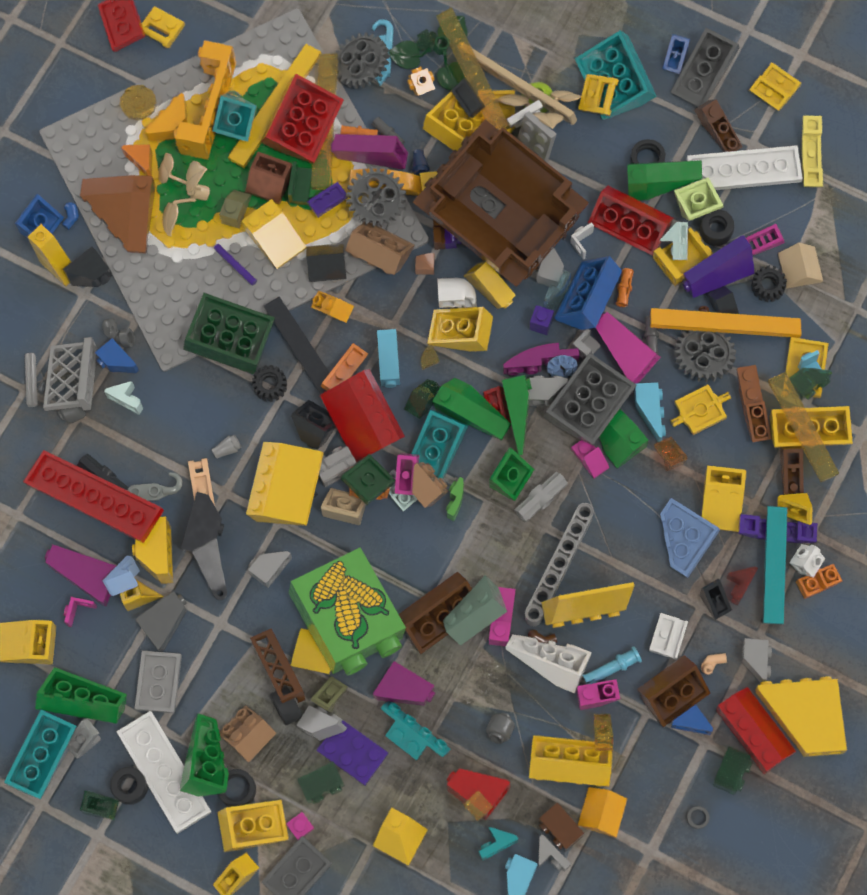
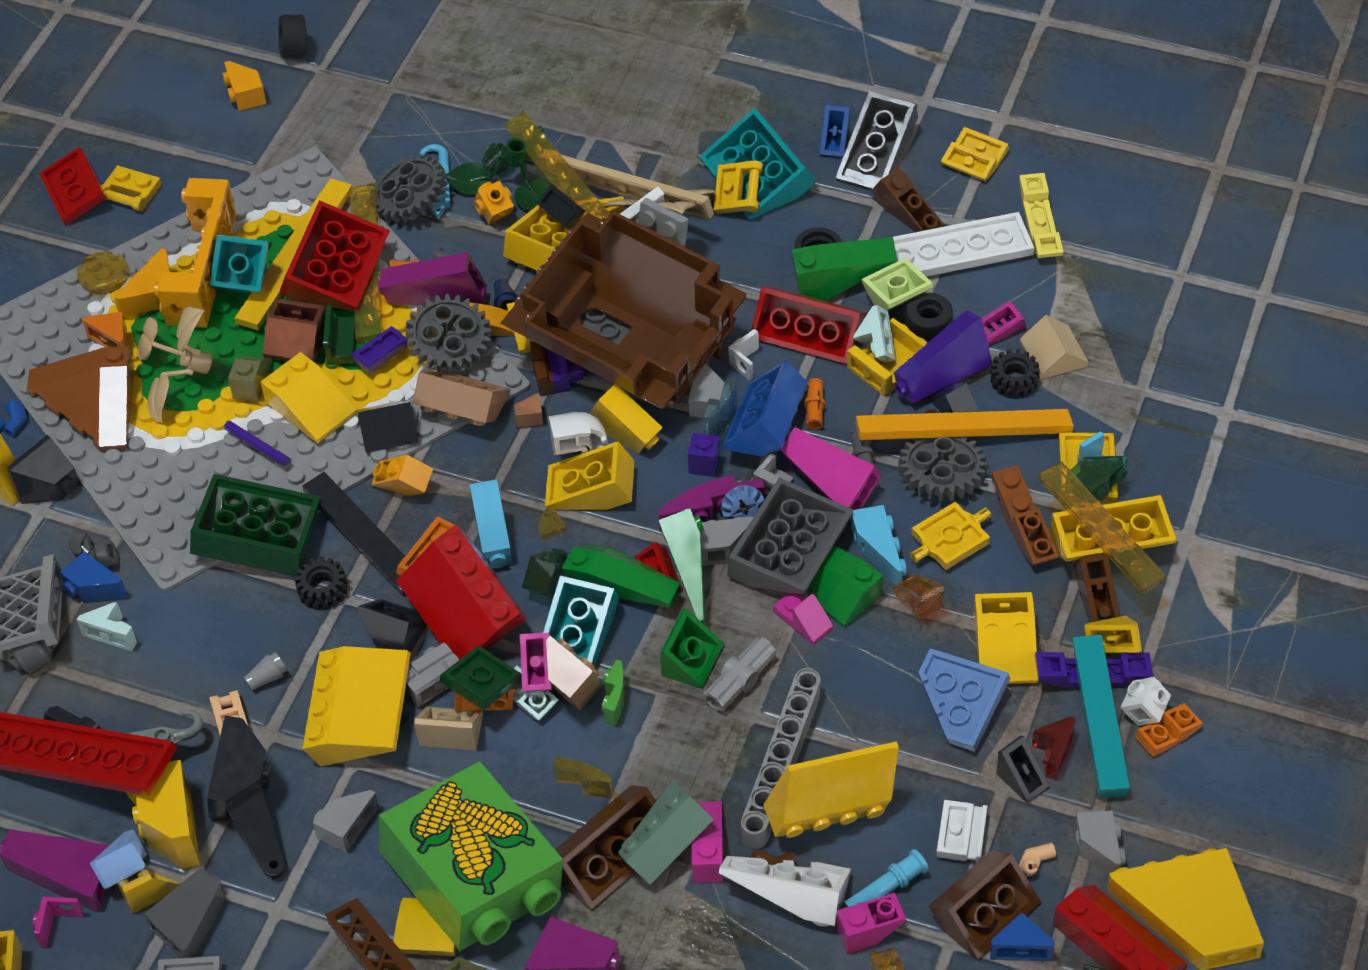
camera: 10 degrees left, 20 degrees down
(432, 562) = (593, 780): none -> clear yellow slope

